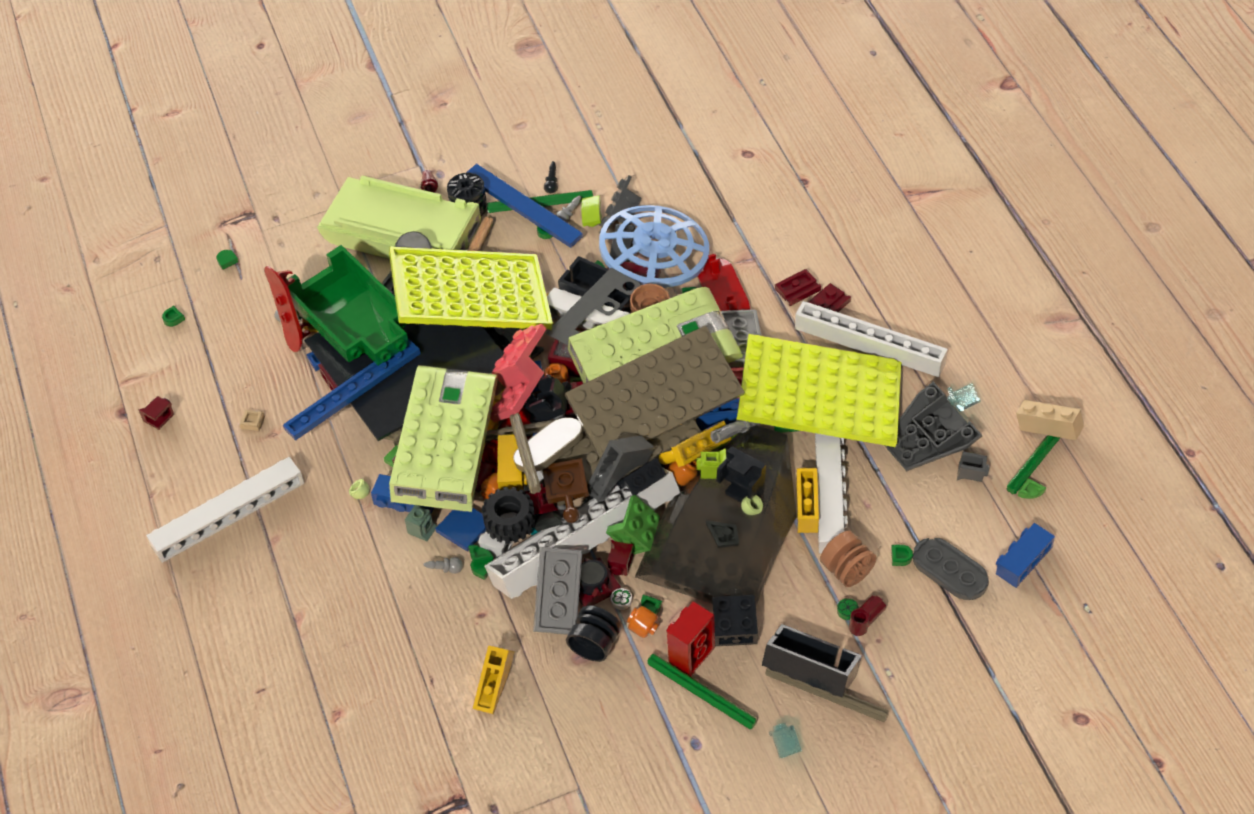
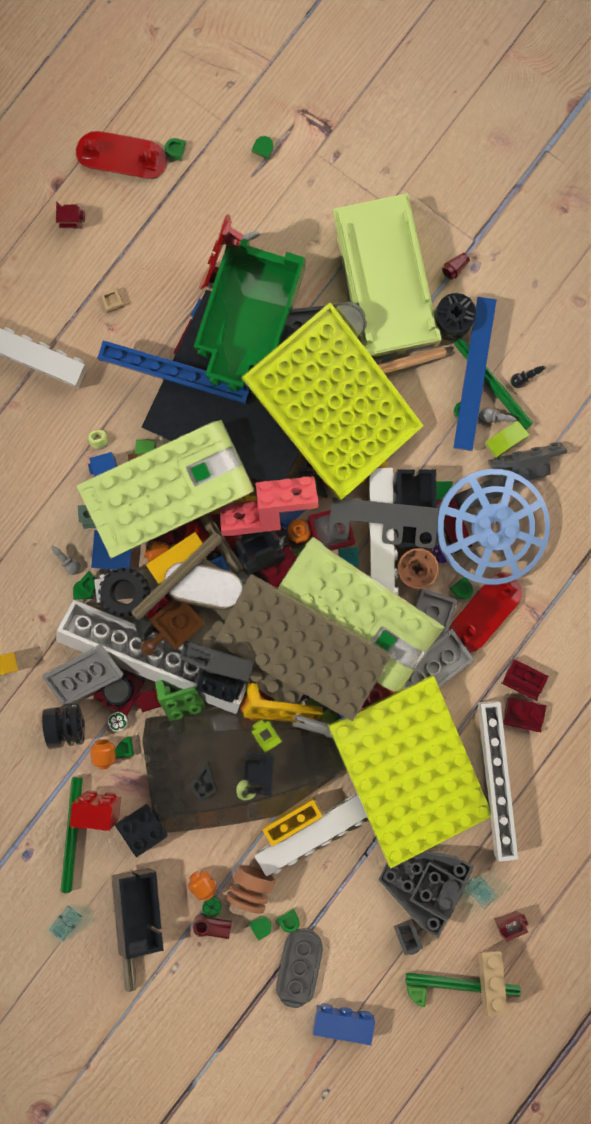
camera: 55 degrees right, 35 degrees up
(141, 355) = (121, 154): none -> red piece
(821, 603) = (202, 885): none -> orange head
(892, 579) = (261, 926): none -> green tile
(1007, 390) = (512, 925): none -> dark red window

